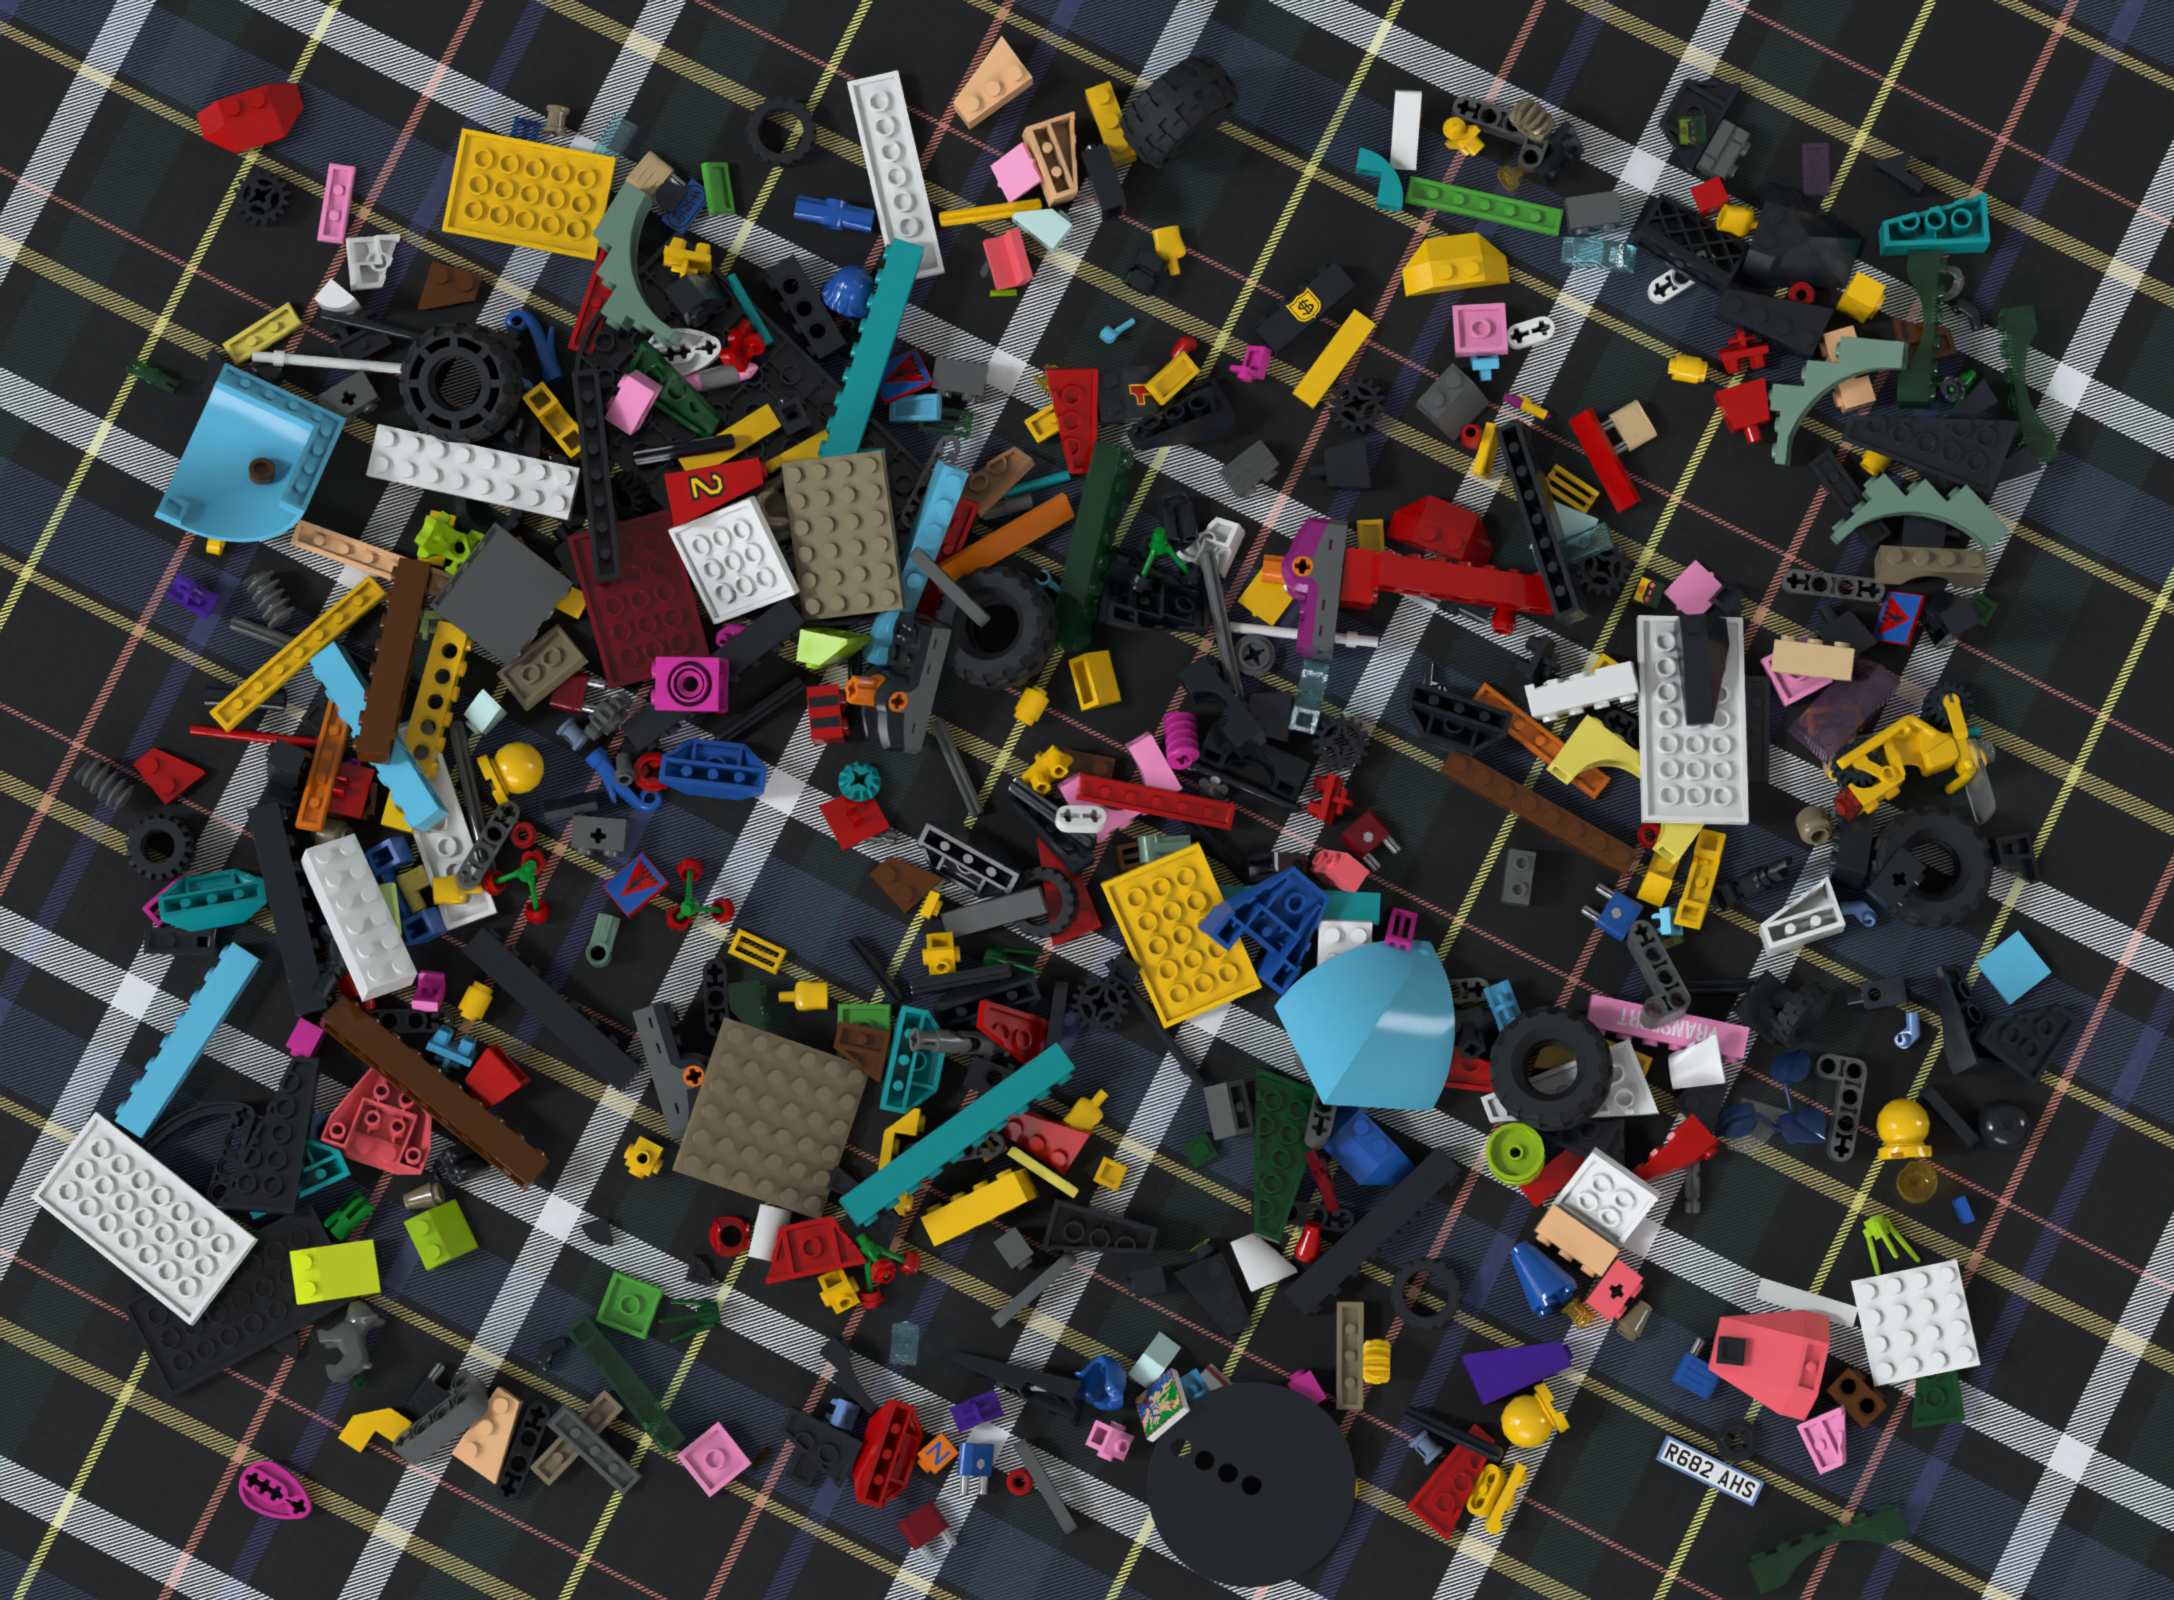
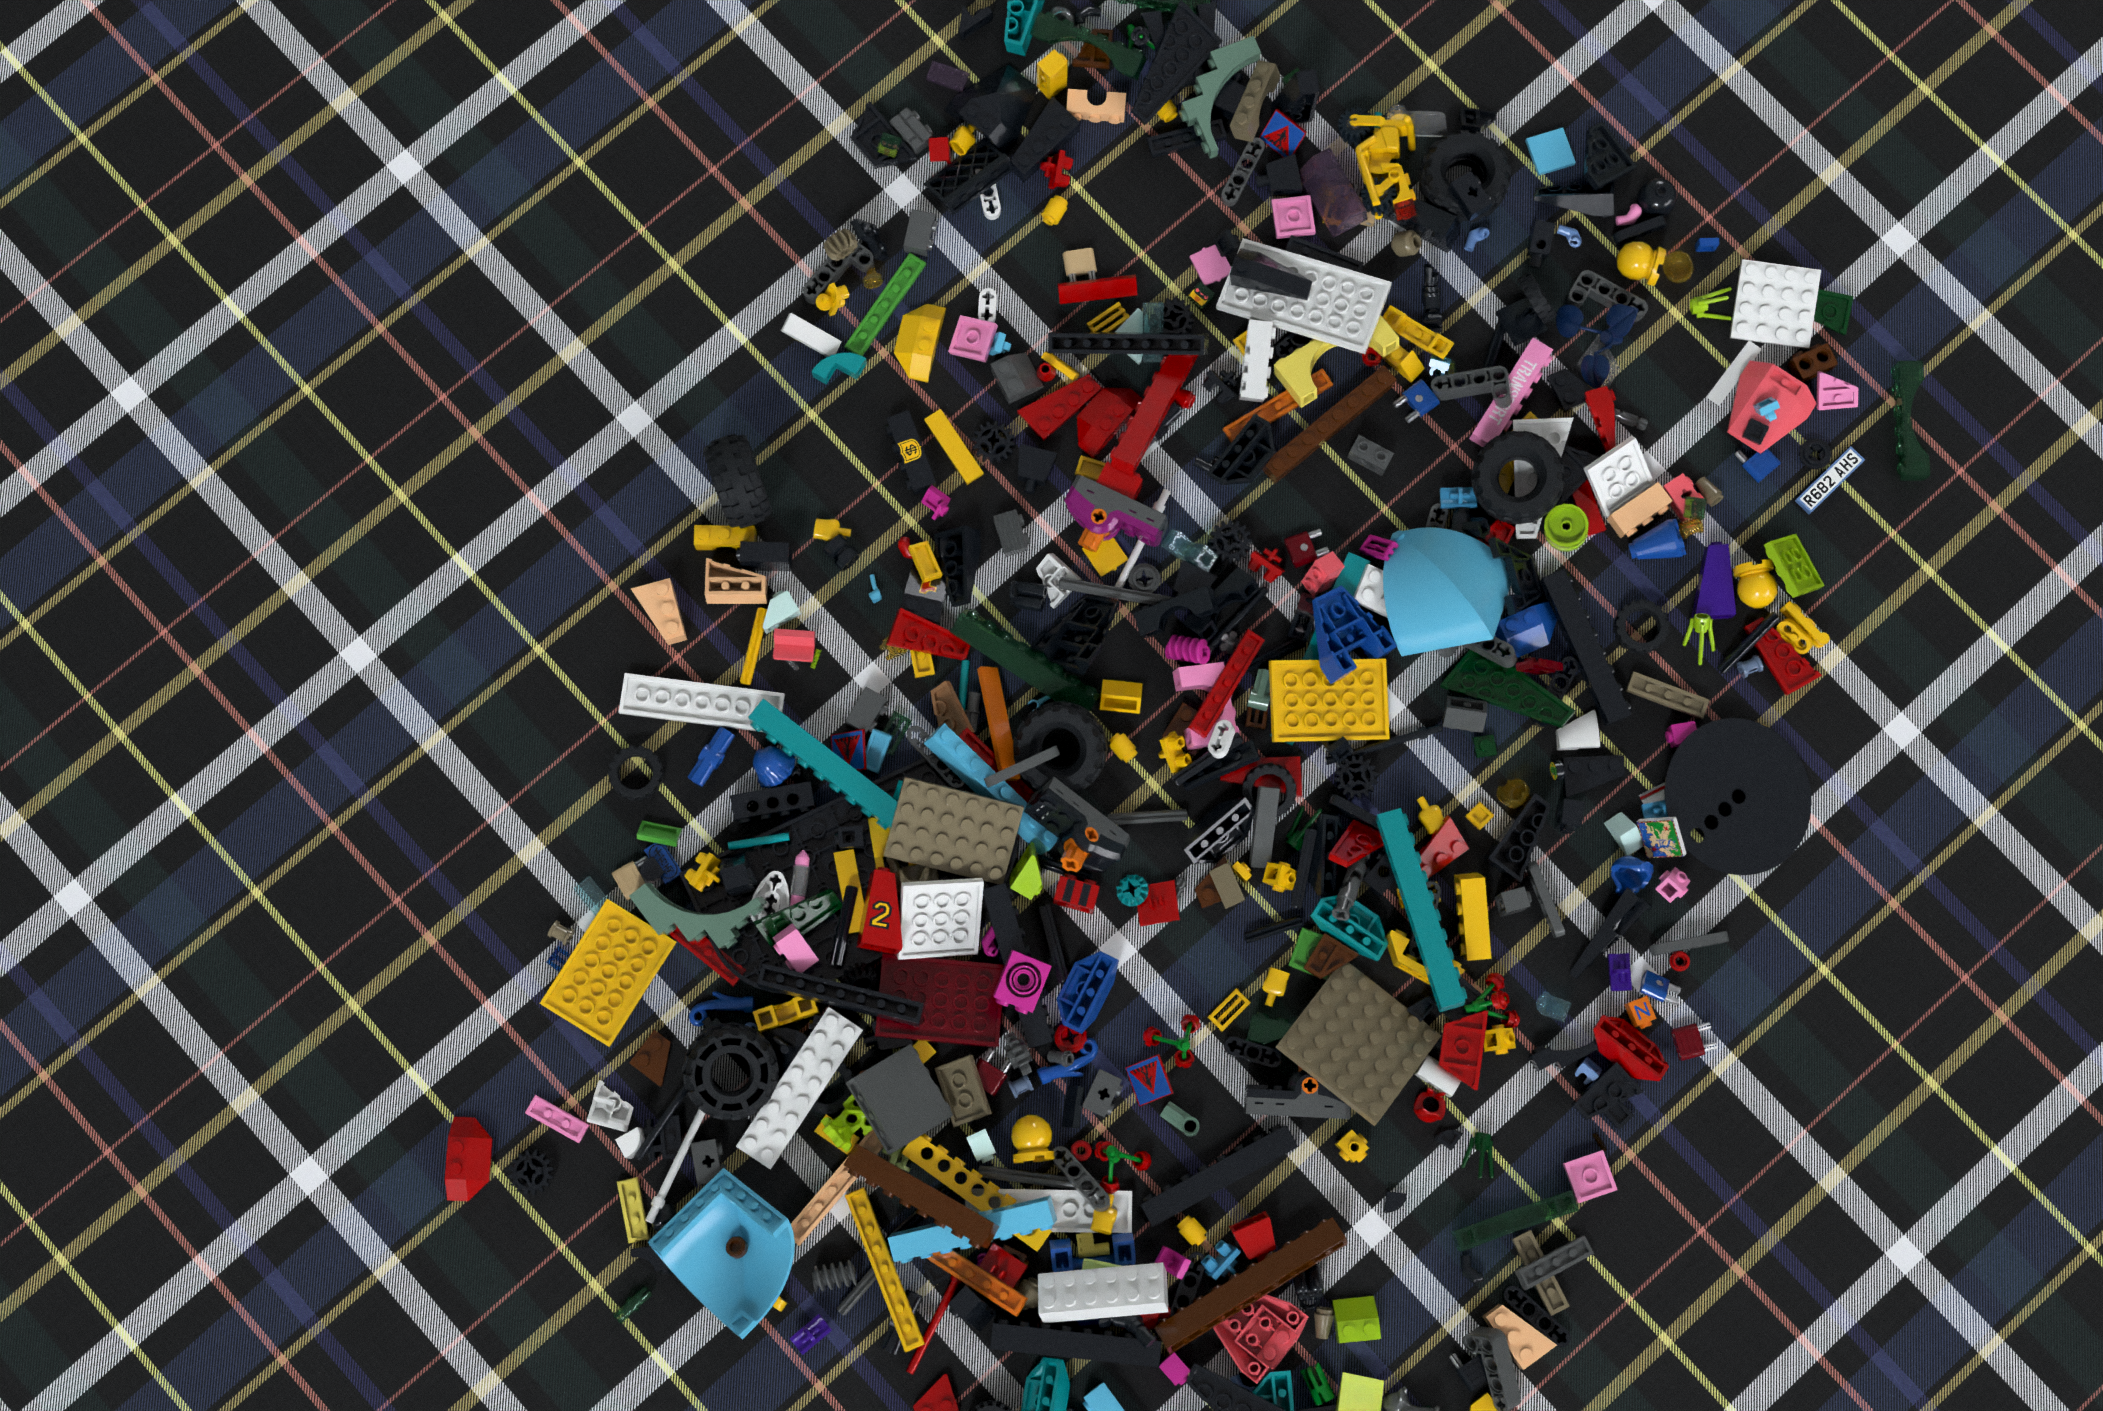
camera: 75 degrees left, 5 degrees down
(629, 1305) = (1455, 1198): bright green tile -> none
(743, 347) = (785, 852): red hips -> none
(905, 892) = (1227, 885): none -> dark tan slope
(1016, 172) = (733, 615): bright pink piece -> none
(1043, 1172) = (1463, 862): light yellow tile -> none
(1151, 1204) = (1513, 793): none -> clear yellow hair
(1152, 547) = (1043, 612): plant -> none
(1308, 1245) = (1579, 694): red cone -> none
(1376, 1361) = (1679, 676): yellow gear -> none
(1429, 465) = (1056, 408): none -> red wing
(1431, 1121) = (1522, 574): none -> black wing
(1453, 1365) = (1701, 623): none -> lime plant
(1525, 404) = (1037, 328): piece -> none
(1573, 1457) = (1793, 565): none -> lime plate
(1598, 253) = (950, 239): clear light blue brick -> none
(1601, 1307) = (1694, 508): none -> clear green tile
(1697, 1064) = (1546, 381): white slope -> none
(1745, 408) = (1097, 182): red torso -> none
(1764, 1353) = (1767, 407): none -> medium azure tile
(1804, 920) = (1469, 271): white wedge -> none
(1810, 294) = (1030, 111): red plate -> none
(1813, 658) = (1292, 198): tan brick -> none
(1855, 358) = (1093, 91): sand green arch -> none
(1965, 1101) = (1631, 217): none -> bright pink arm

